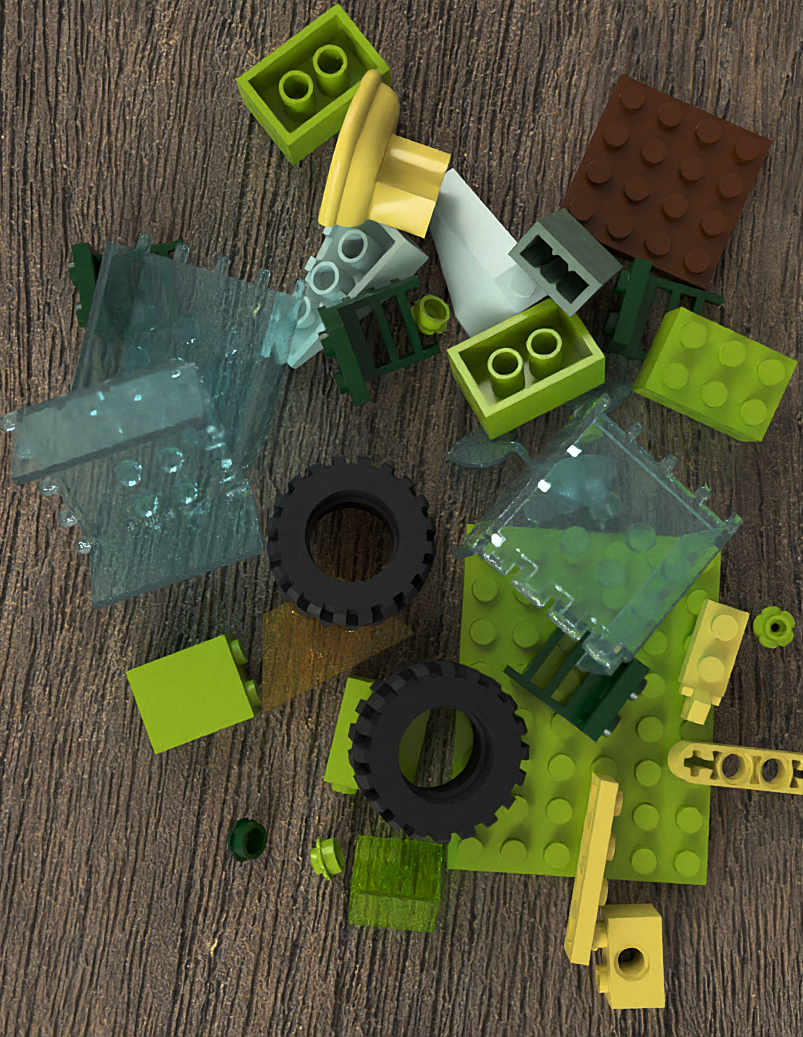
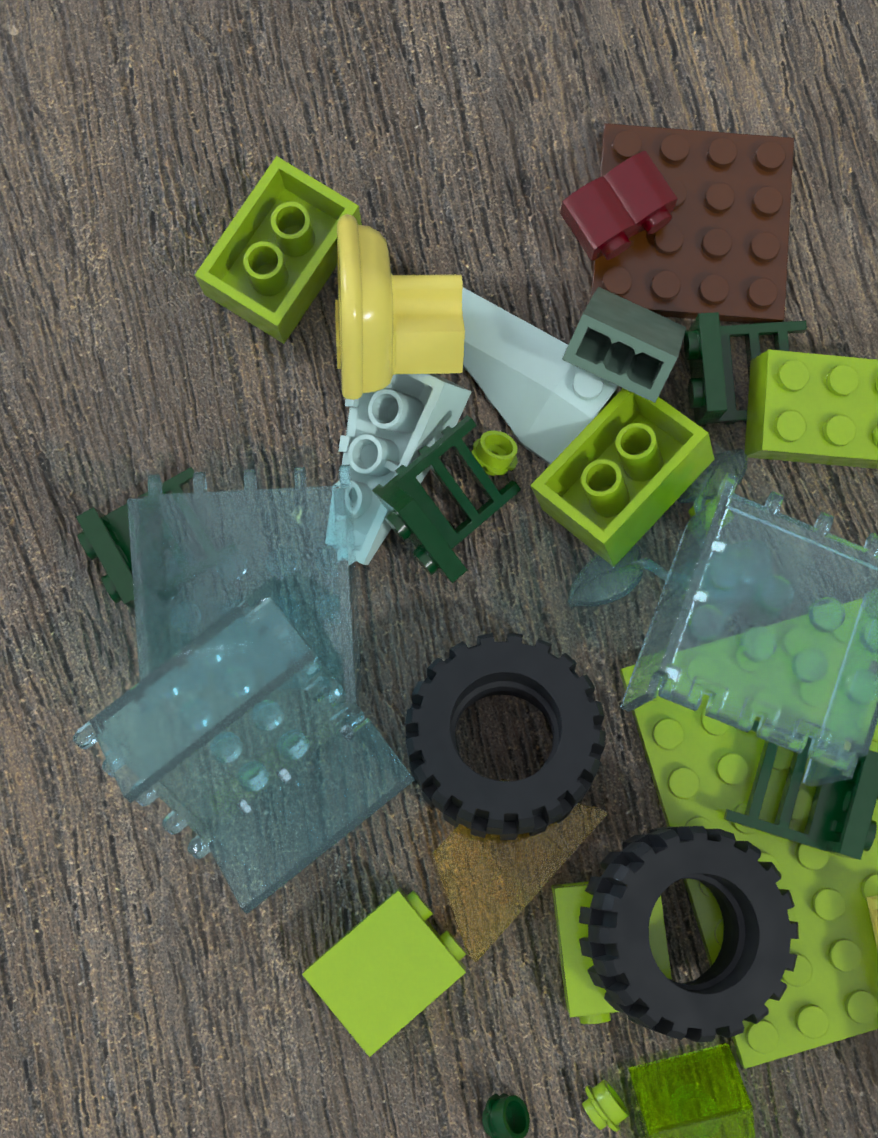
camera: 15 degrees left, 5 degrees down
(605, 146) = (619, 206): none -> dark red brick

